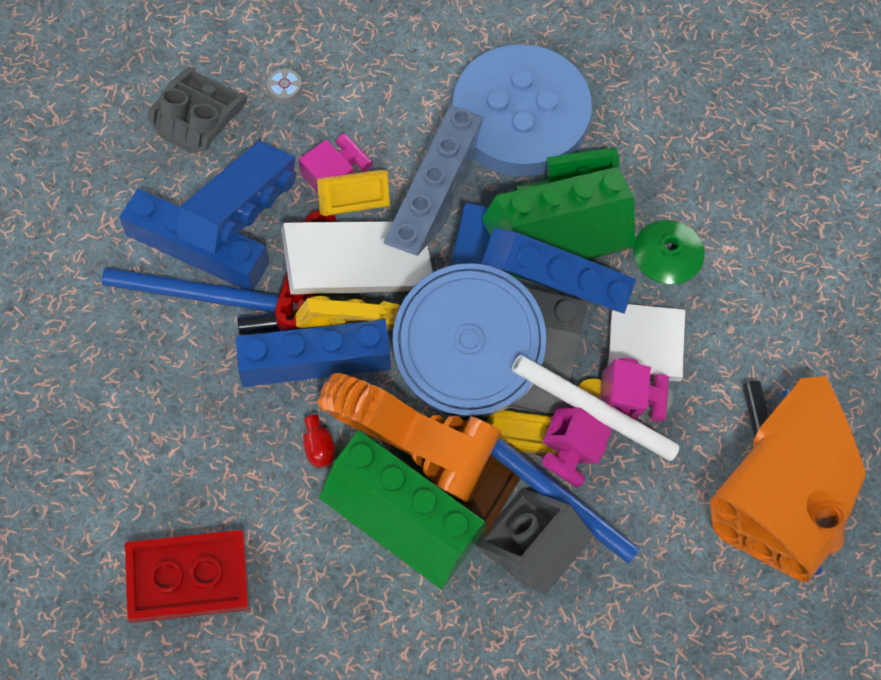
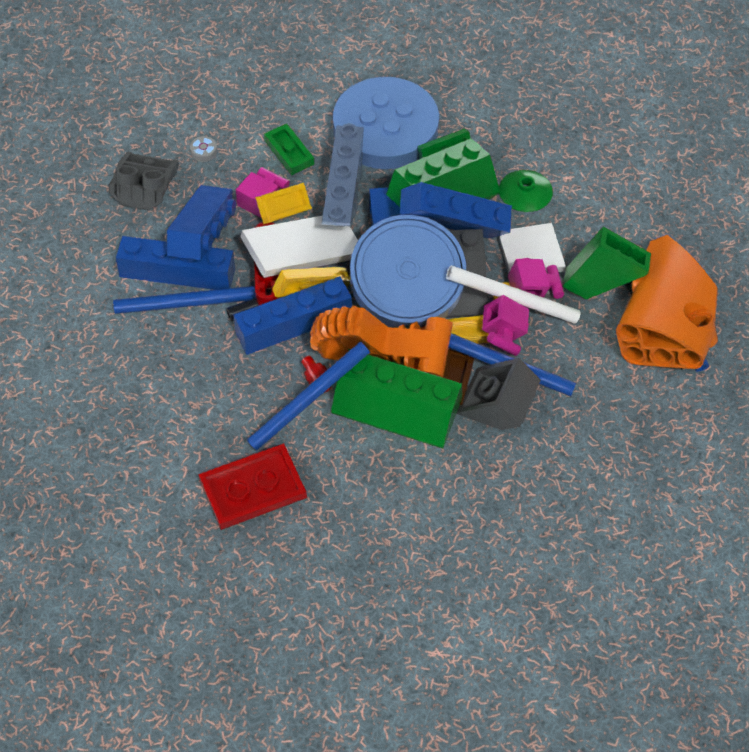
camera: 15 degrees left, 10 degrees down
(291, 477) = (308, 396): none -> blue piece
(388, 115) = (289, 149): none -> green plate
(730, 399) = (605, 265): none -> green slope

